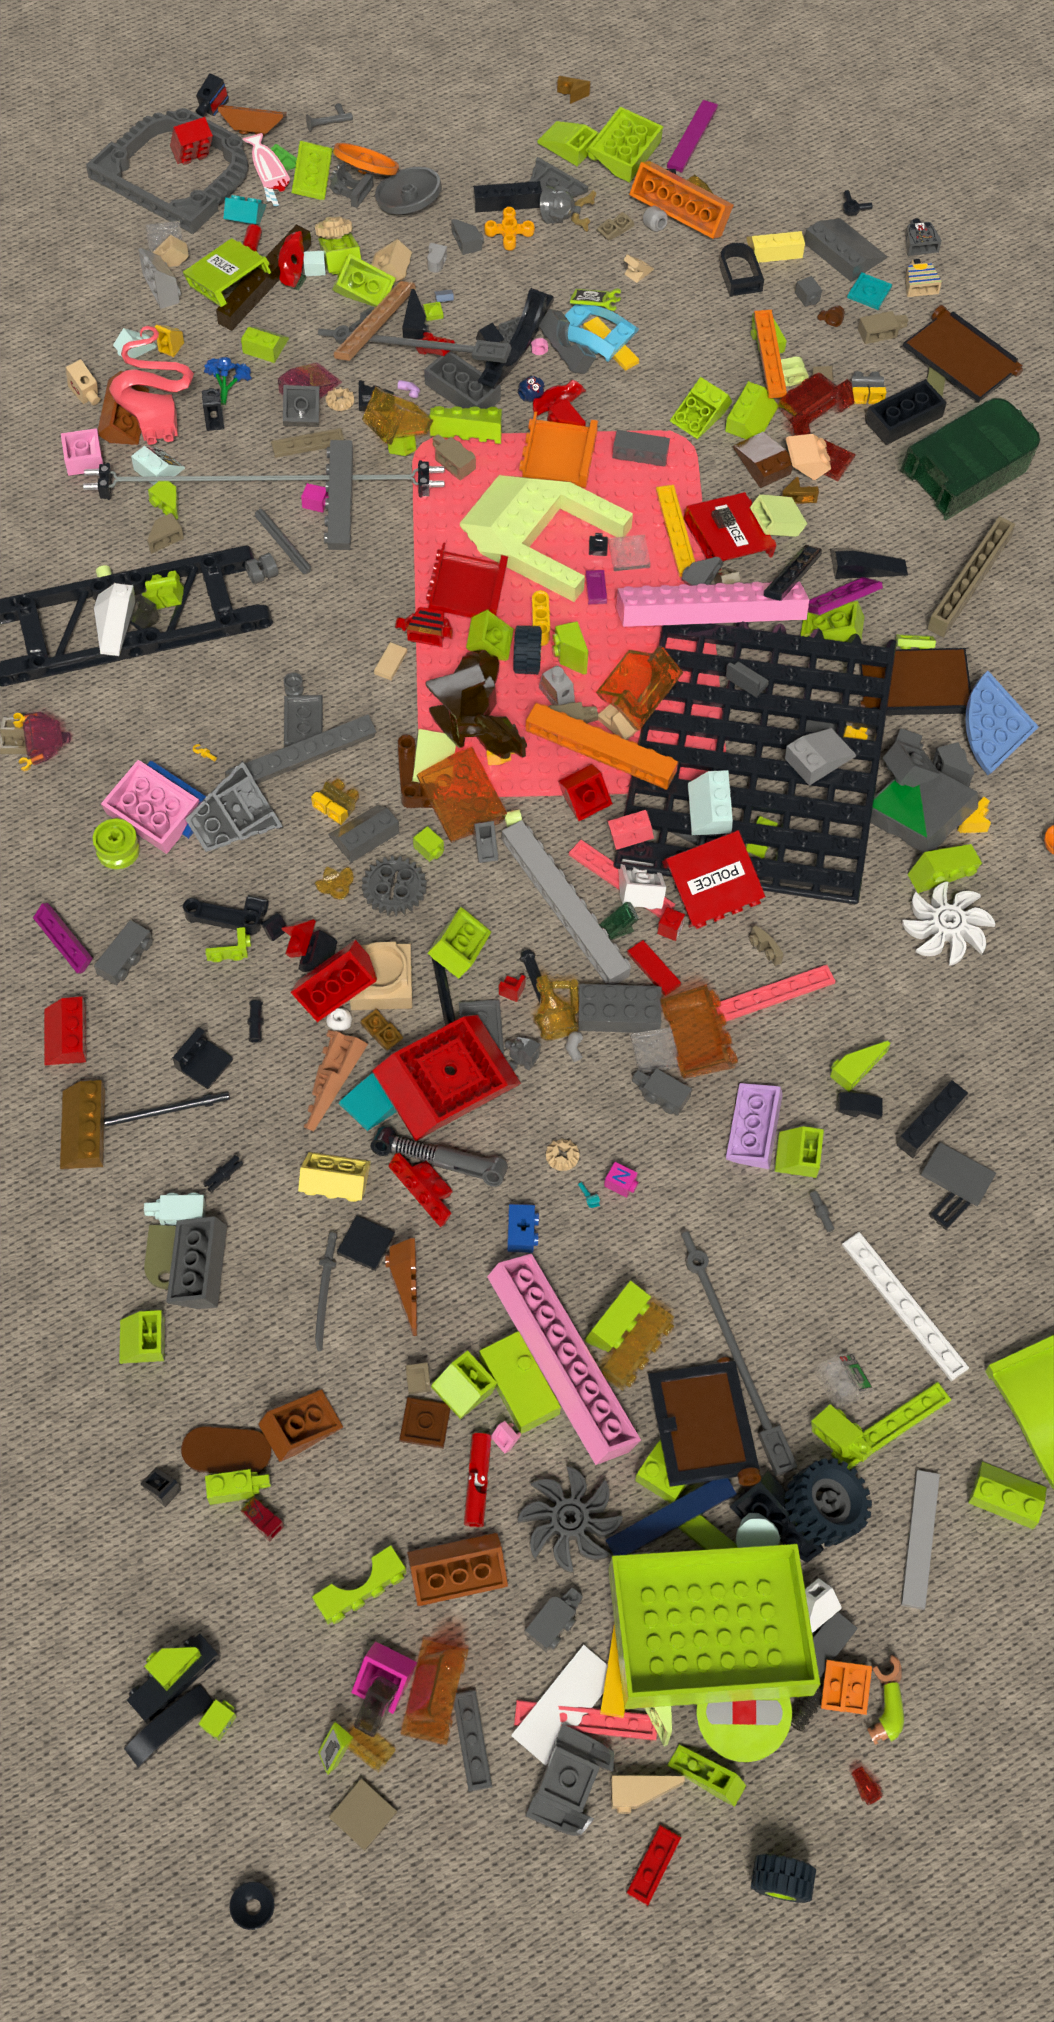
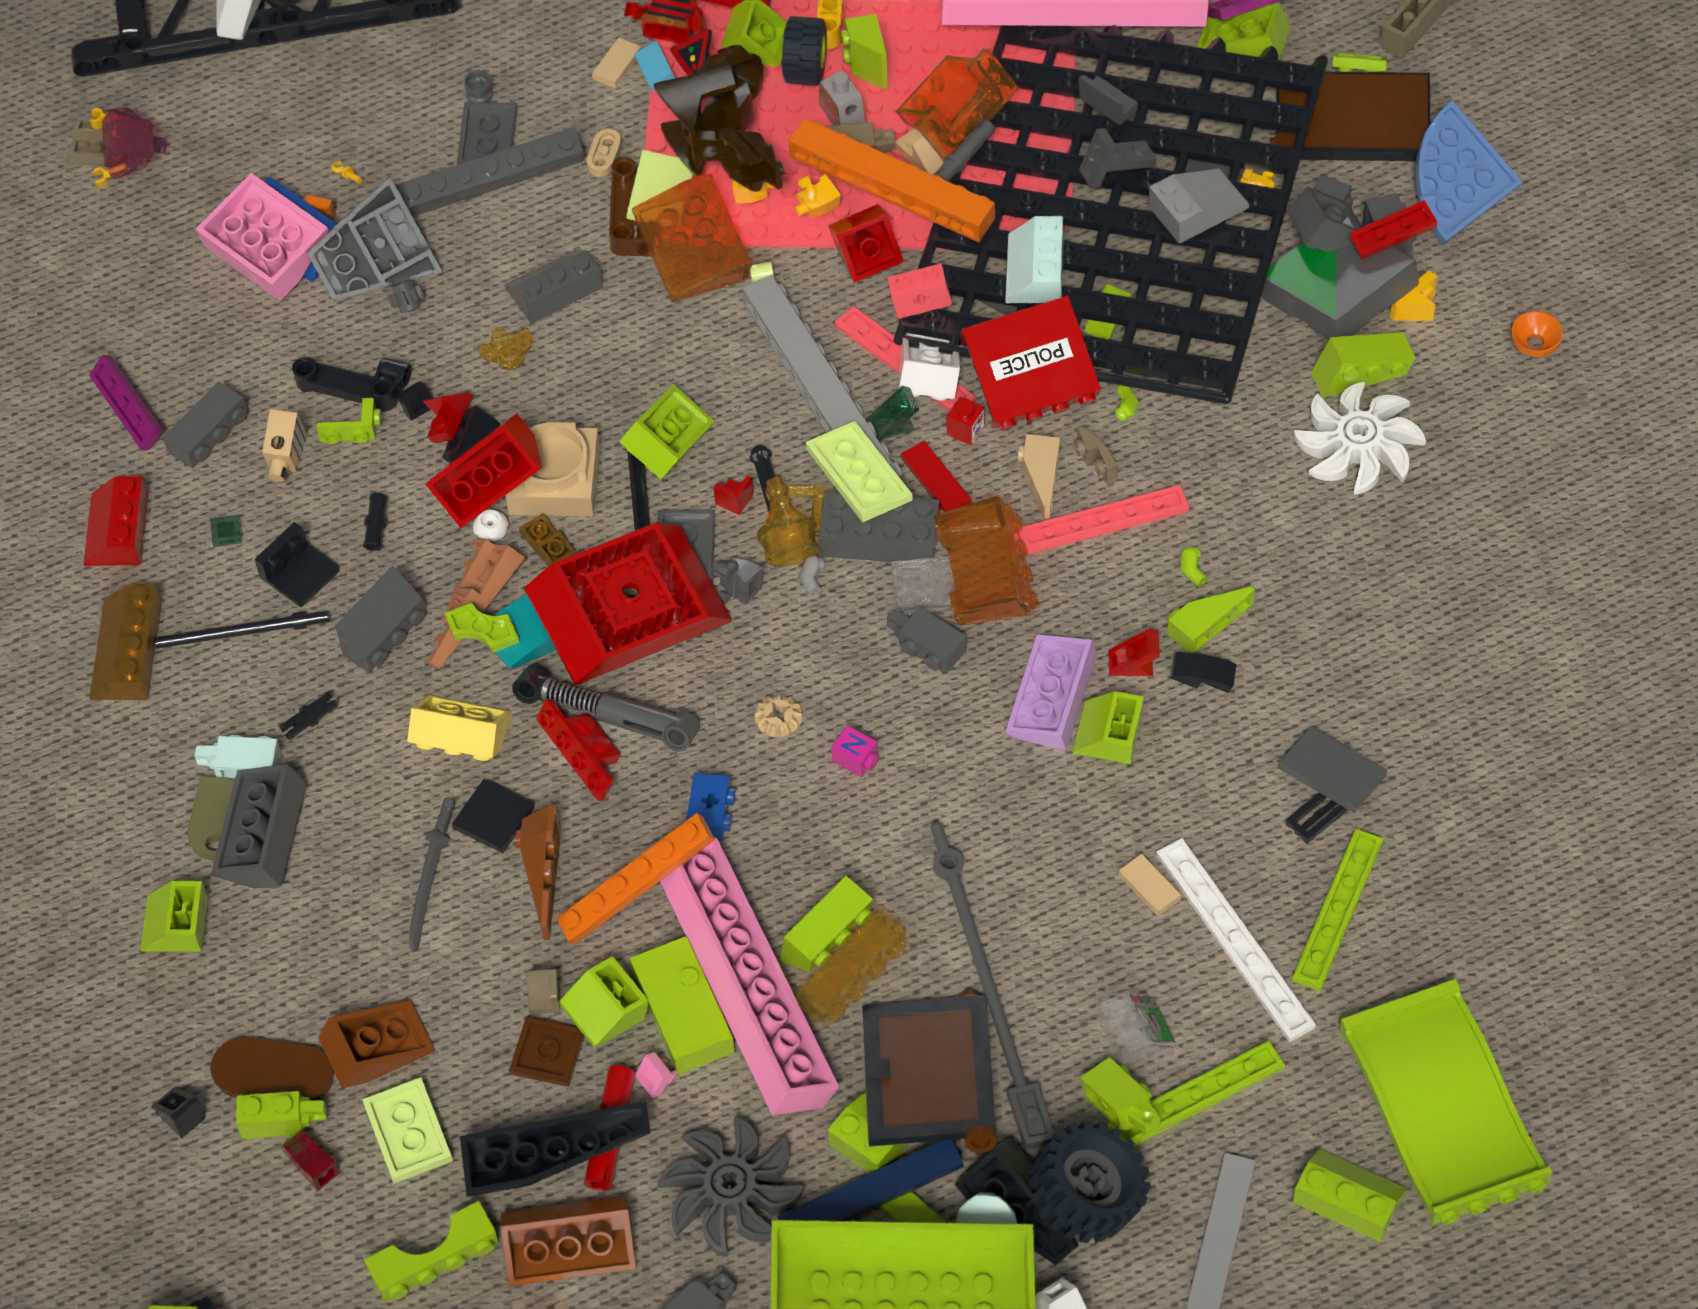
camera: 10 degrees right, 5 degrees down
(116, 843) = (211, 283): lime wheel -> none
(146, 1033) = (226, 531): none -> clear green tile
(182, 966) = (283, 443): none -> tan torso
(191, 780) = (323, 205): none -> orange tile
(259, 847) = (405, 296): none -> dark grey gear
(269, 1099) = (380, 620): none -> dark grey slope
(331, 1491) = (407, 1130): none -> yellowish green plate
(334, 801) = (517, 242): hips -> none
(353, 1103) = (493, 631): none -> lime tile
(375, 882) = (602, 363): dark grey gear -> none
(389, 732) = (602, 154): none -> tan plate
(419, 663) = (654, 64): none -> medium azure tile
(428, 844) = (640, 302): lime brick -> none
(432, 1504) = (541, 1149): none -> black wedge
(447, 654) = (692, 51): none -> piece
(478, 1290) = (635, 878): none -> orange plate
(485, 841) = (718, 301): dark grey slope -> none
(548, 761) = (818, 198): none -> yellow piece
(592, 1200) = (812, 777): teal hand -> none
(602, 968) = (858, 471): none -> yellowish green tile
(652, 717) = (956, 161): none -> dark grey pin
(727, 958) = (1040, 468): none -> tan slope
(753, 723) = (1106, 156): none -> dark grey bracket
(784, 905) = (1128, 404): none -> lime arm
(811, 1095) = (1135, 655): none -> red slope
(822, 1211) = (1133, 808): dark grey bar -> none
(840, 1025) = (1188, 566): none -> lime arm
(840, 1268) = (1149, 885): none -> tan tile
(932, 1119) = (1303, 694): black brick -> none
(960, 770) = (1393, 230): none -> red plate
(974, 1279) = (1337, 910): none -> lime tile

